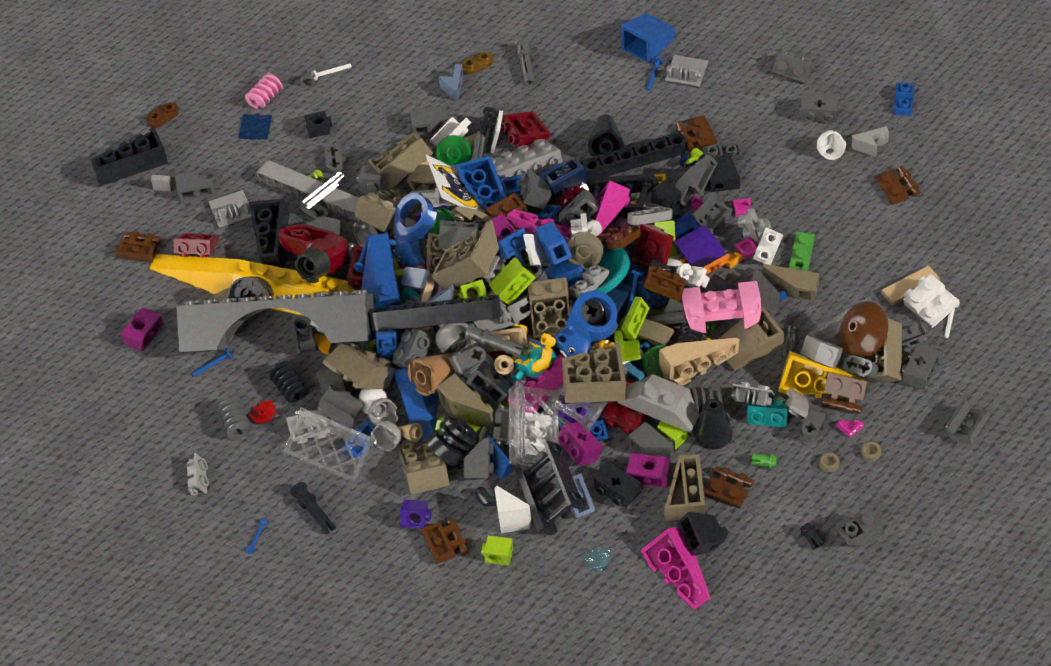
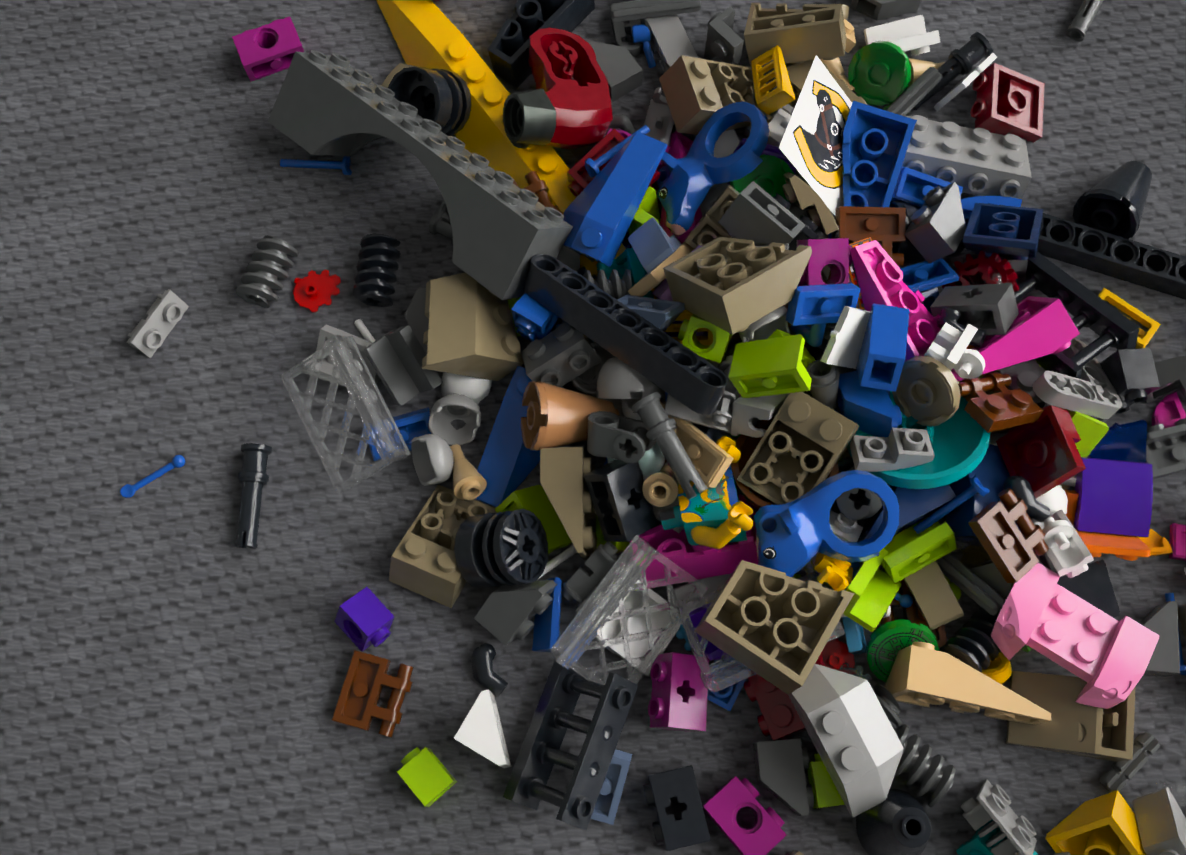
camera: 35 degrees right, 20 degrees up
(326, 206) = (641, 33): none -> blue hand
(417, 188) = (783, 94): none -> yellow slope

